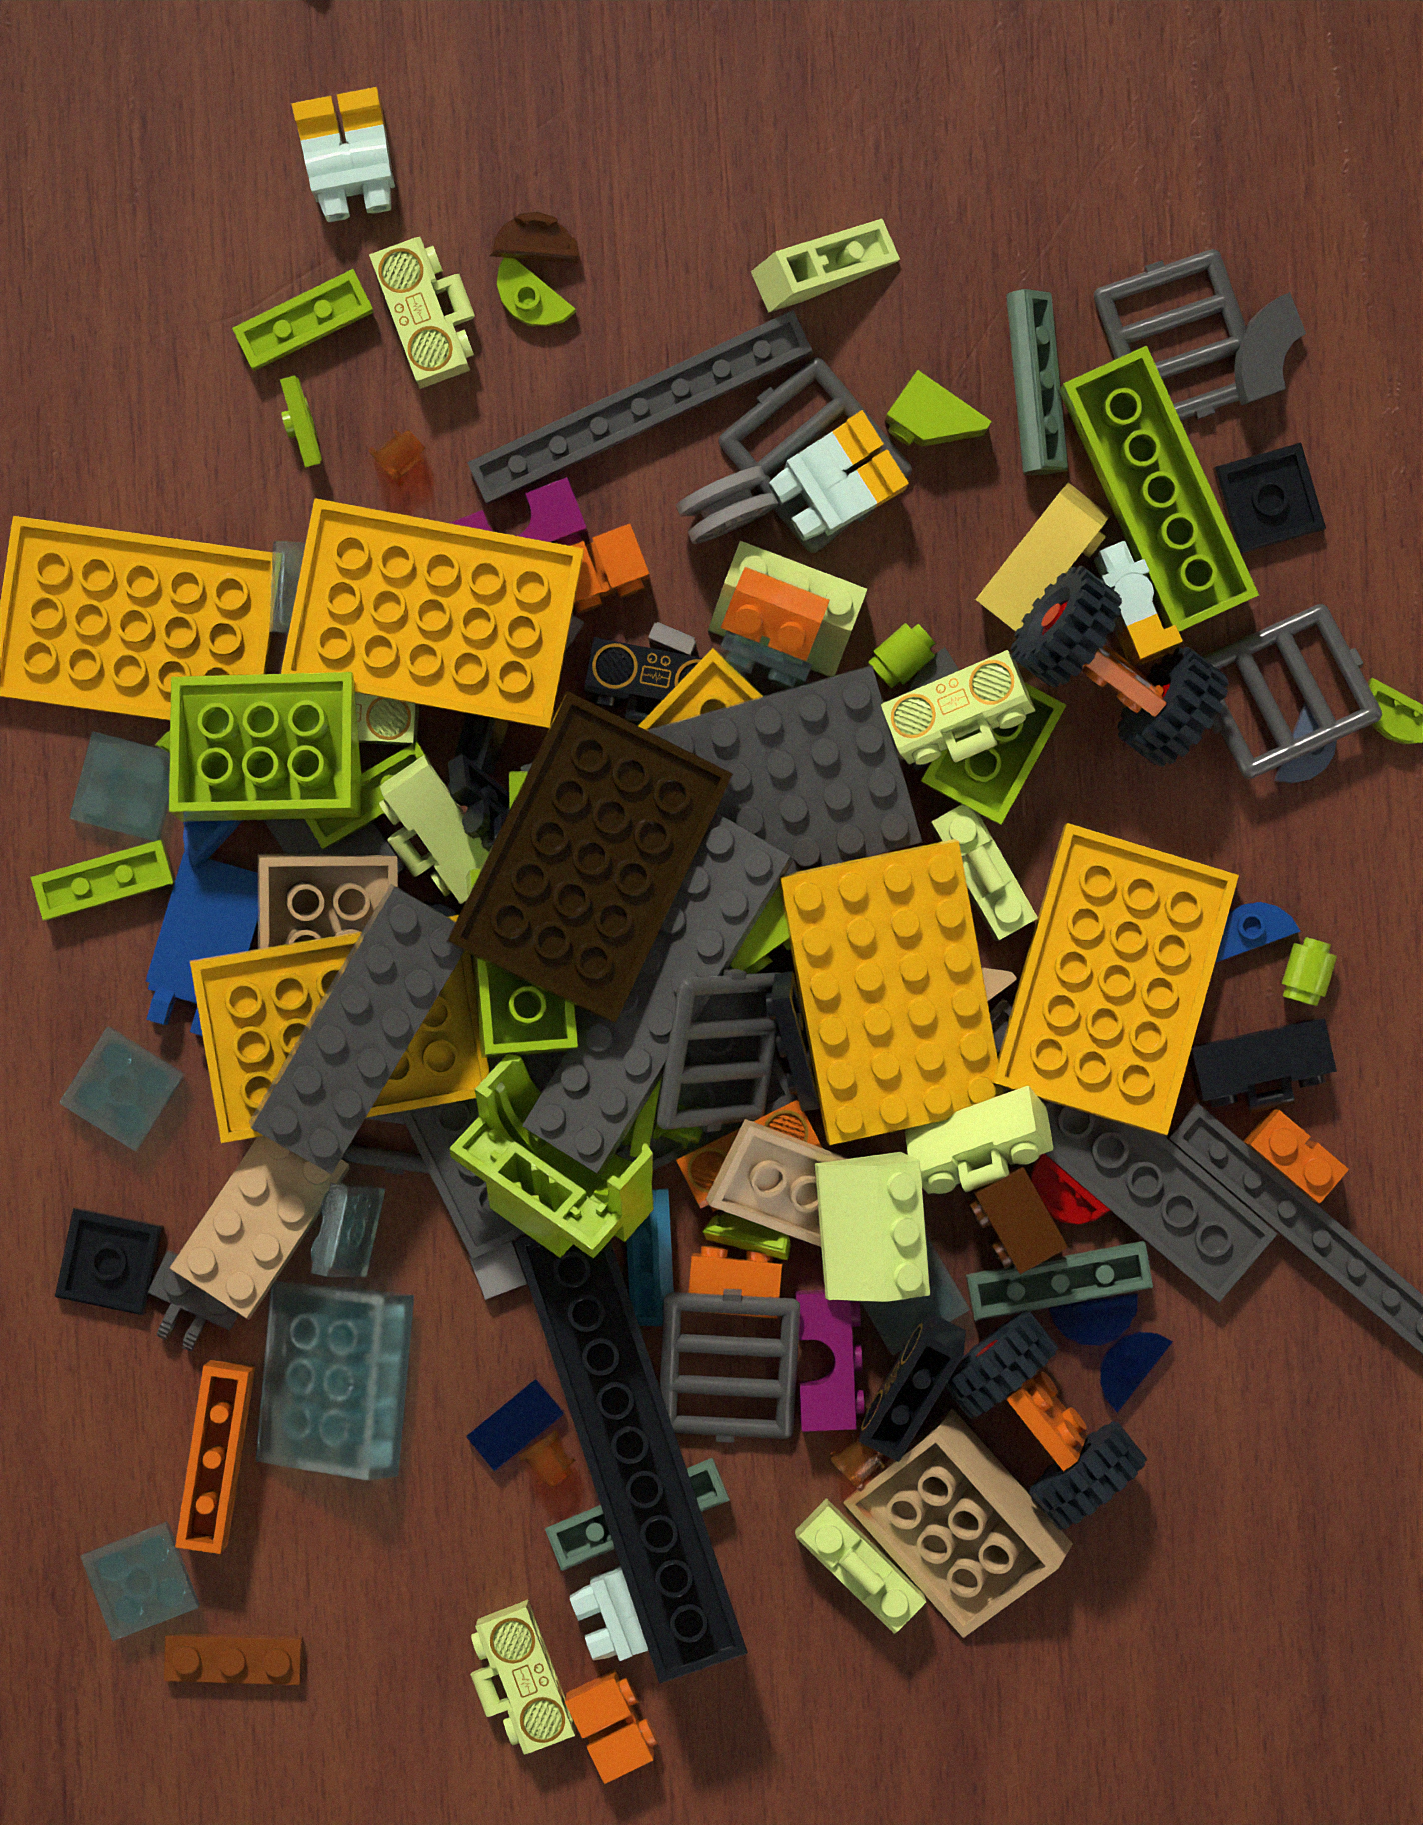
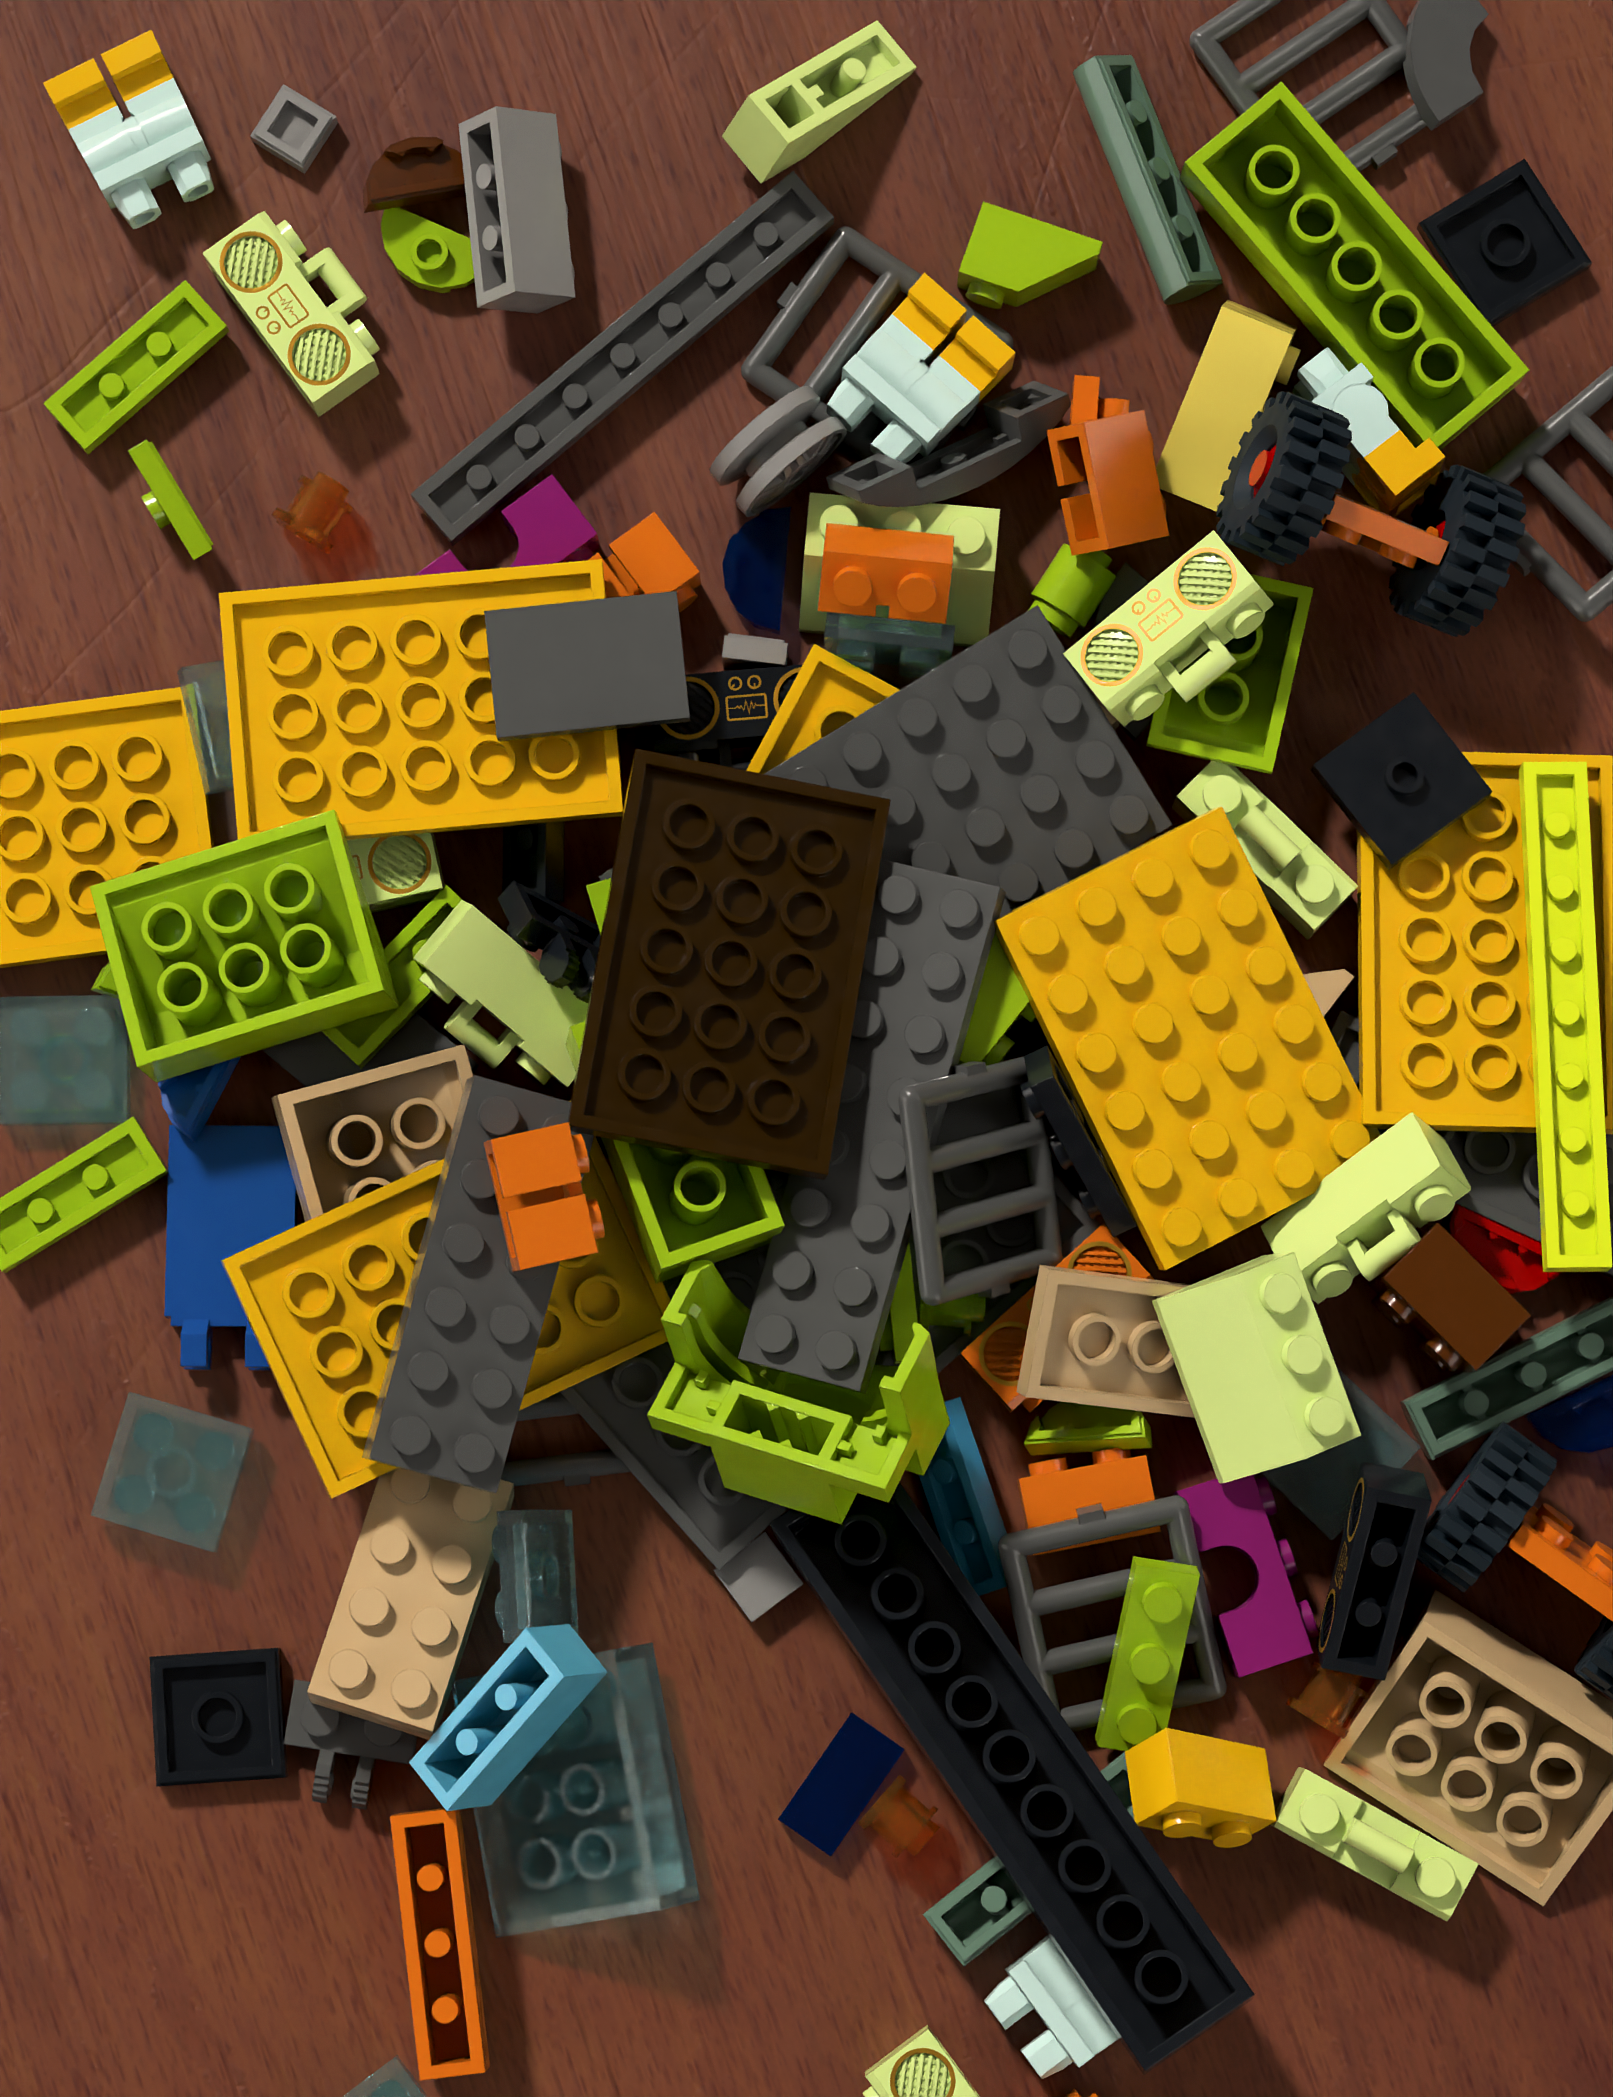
camera: 10 degrees left, 5 degrees down
(300, 1322) = (508, 1717): none -> medium azure brick
(416, 985) = (542, 1196): none -> orange piece
(457, 182) = (294, 129): none -> light grey tile
(552, 621) = (587, 666): none -> dark grey tile
(594, 284) = (516, 210): none -> light grey brick
(691, 579) = (757, 568): none -> clear blue plate
(744, 1399) = (1147, 1652): none -> lime plate
(754, 1499) = (1200, 1787): none -> yellow brick
(896, 532) = (1014, 429): none -> dark grey slope
(951, 538) = (1087, 406): none -> orange tile
(954, 604) = (1121, 479): none -> orange piece
(1088, 853) = (1401, 780): none -> black plate
(1152, 1048) = (1565, 1017): none -> neon yellow plate

